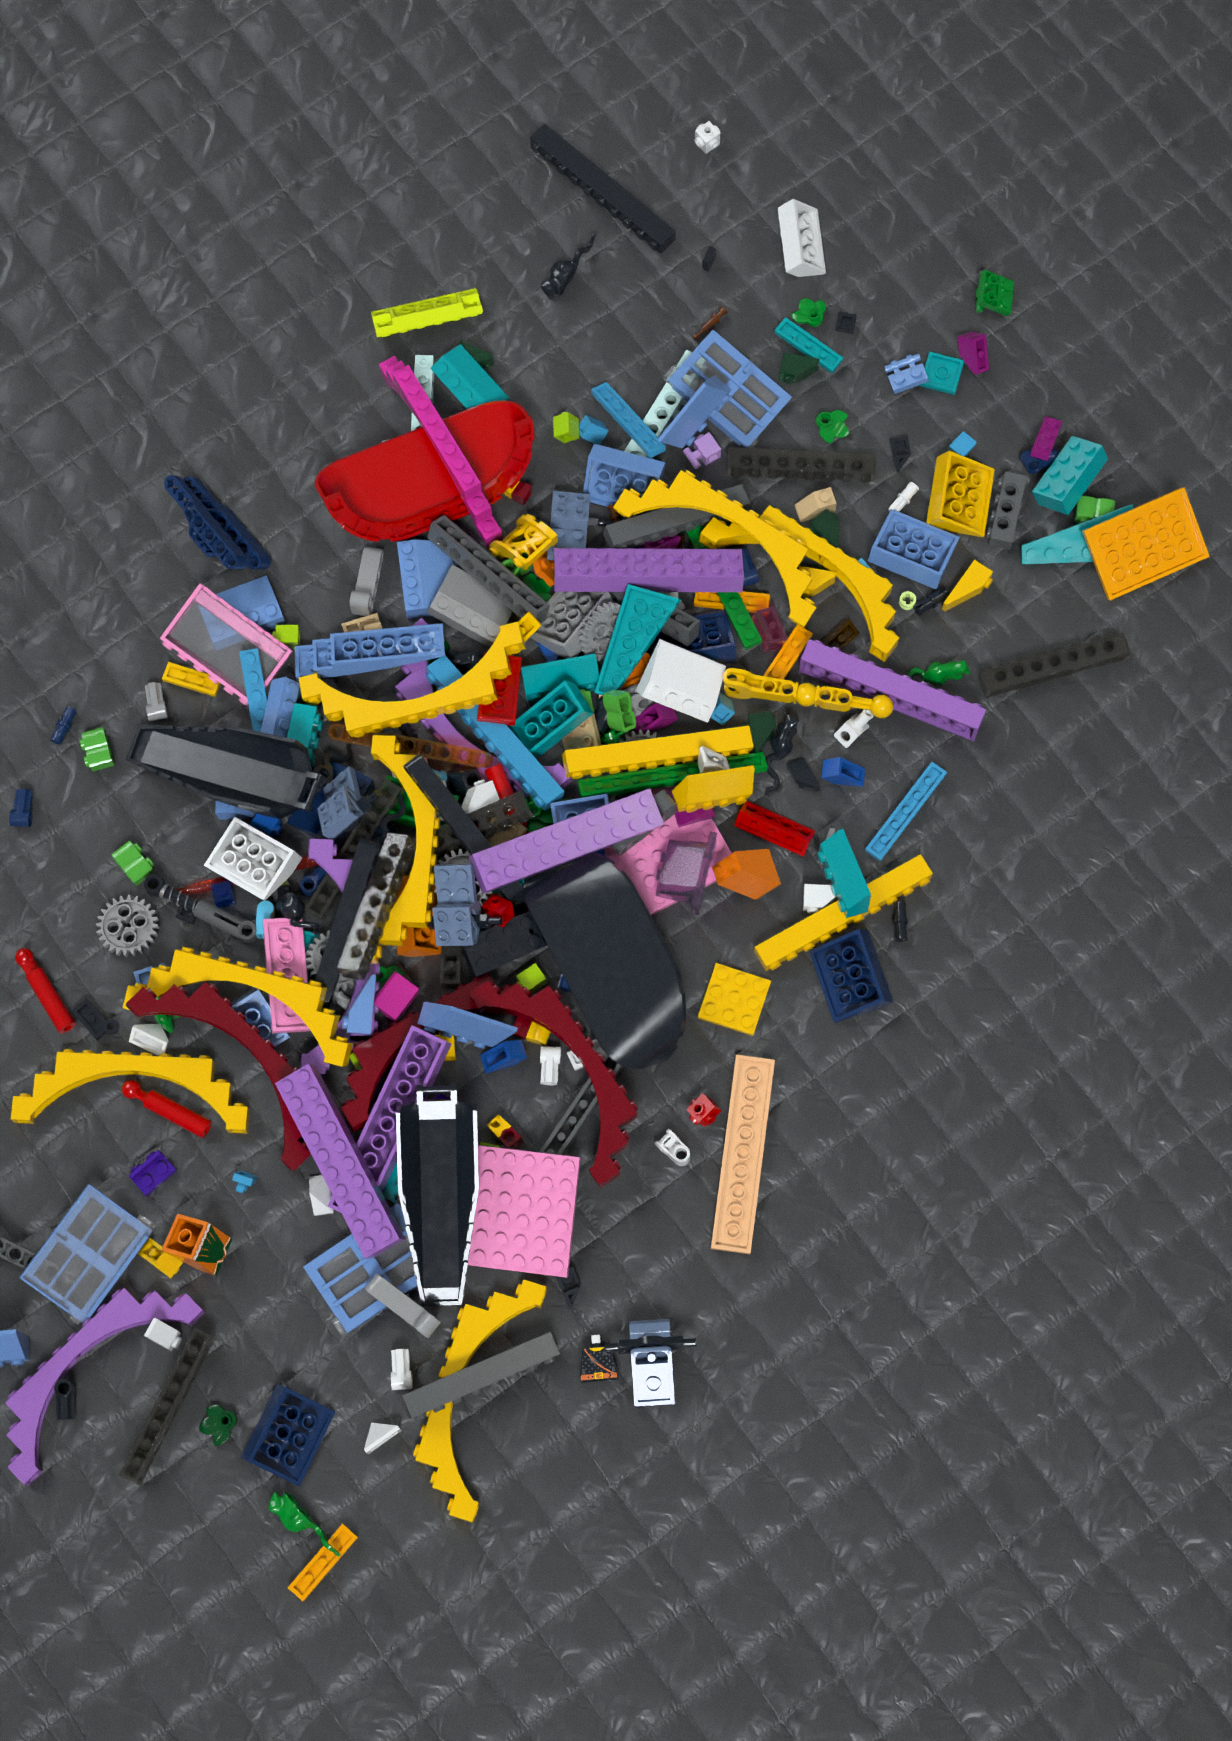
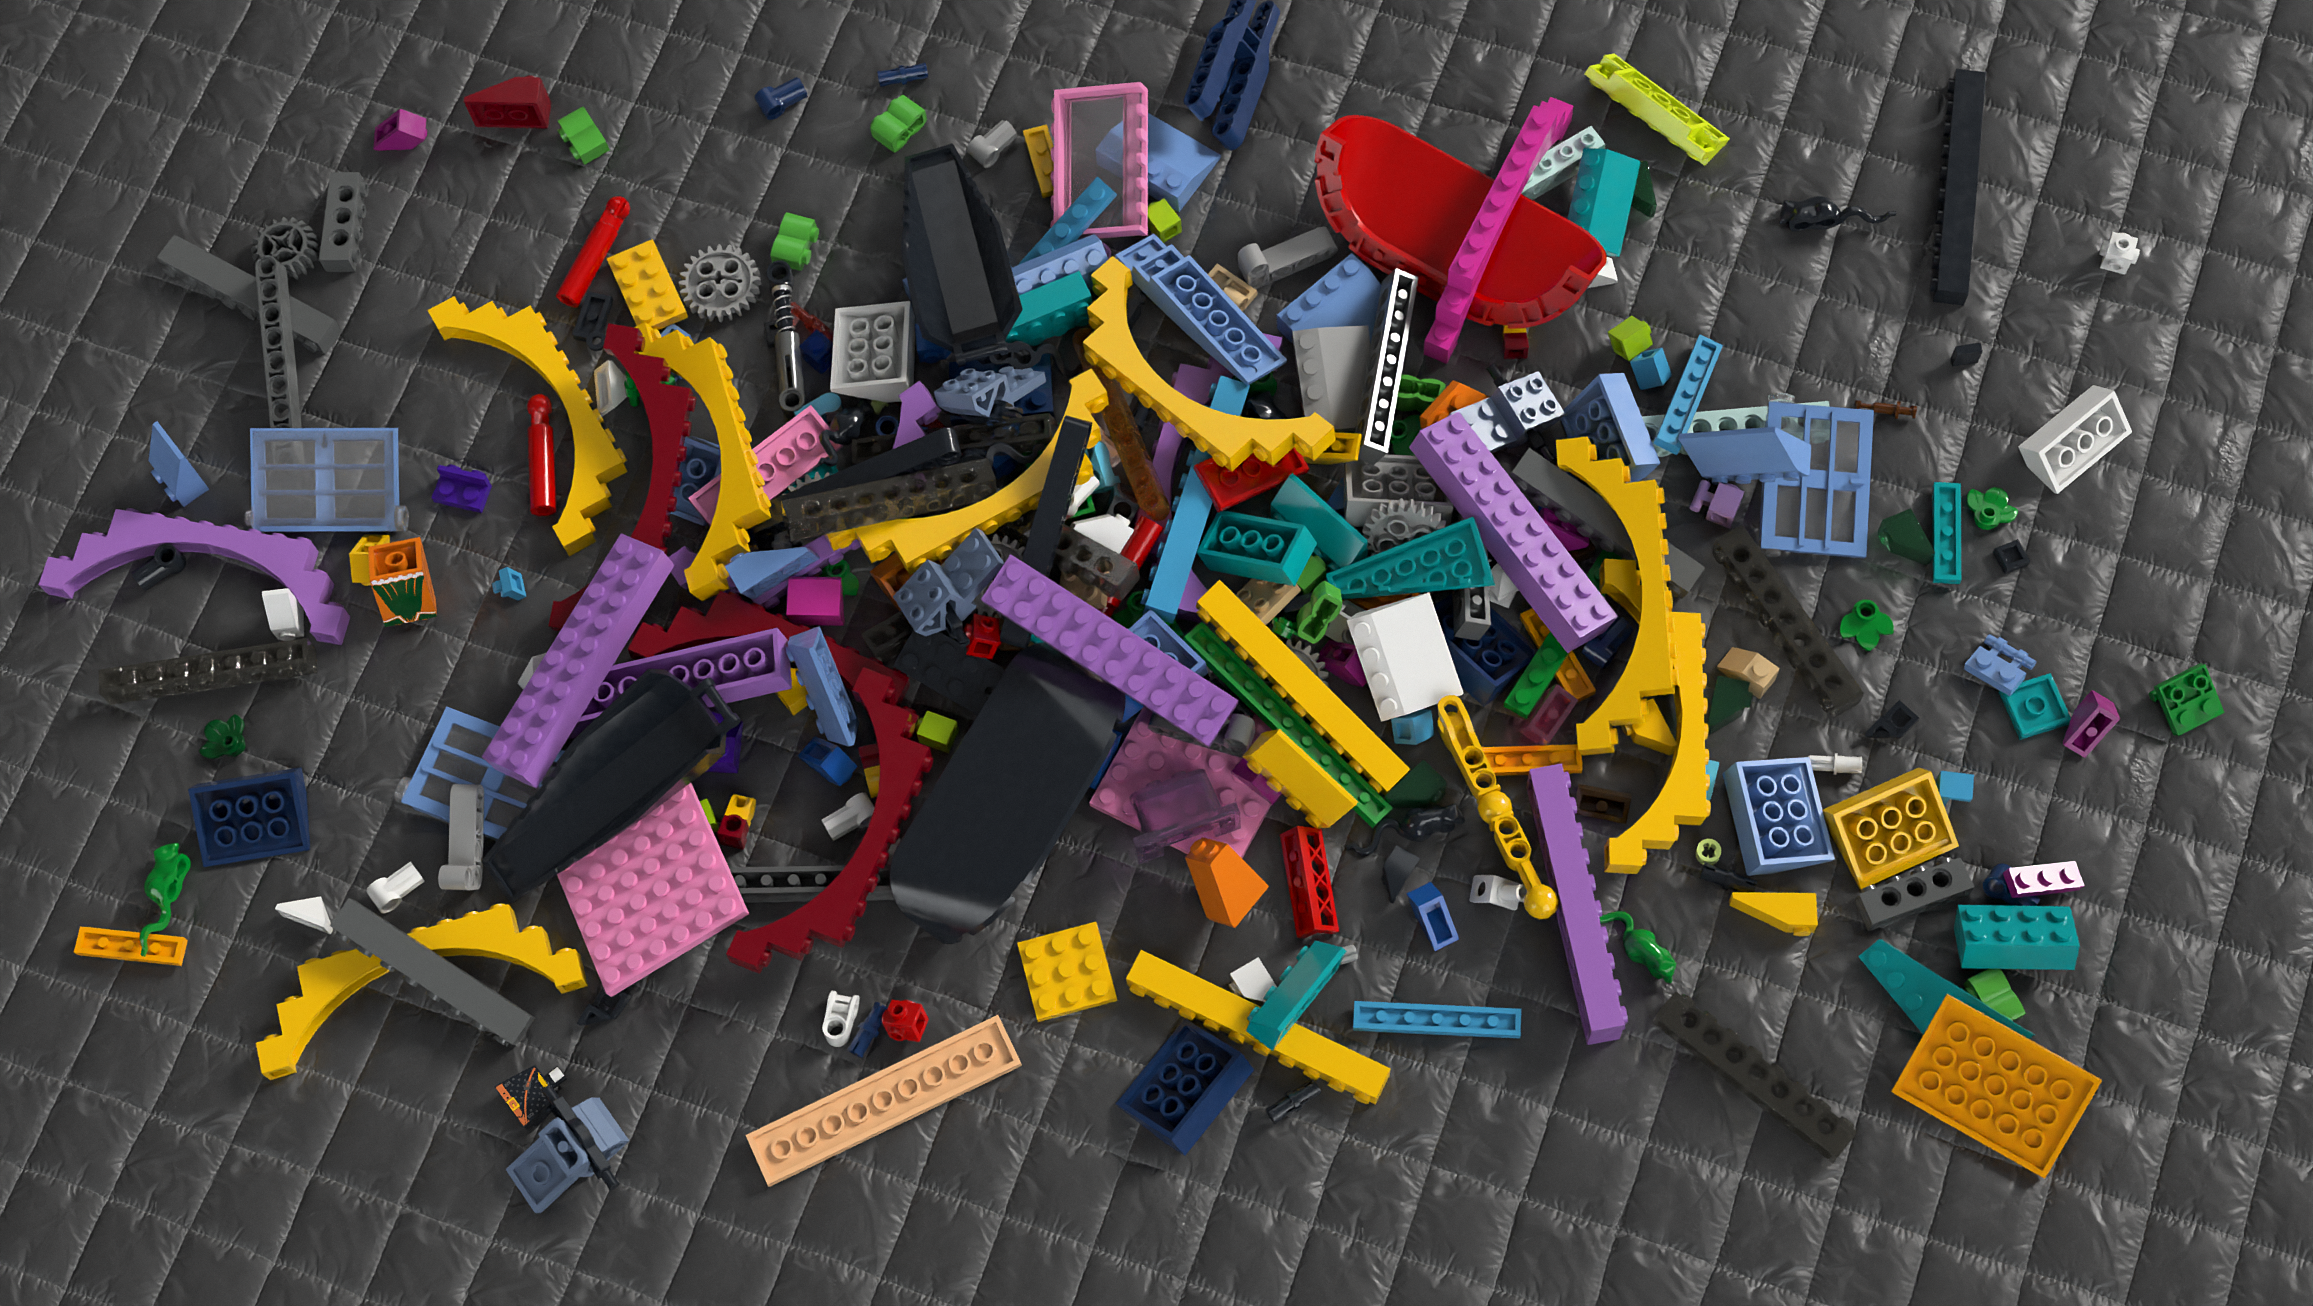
camera: 60 degrees right, 5 degrees down
(96, 972) = (647, 286): none -> yellow plate
(512, 549) = (1439, 373): yellow fence -> none
(692, 1136) = (867, 1030): none -> dark blue pin
(711, 761) = (1331, 755): white slope -> none

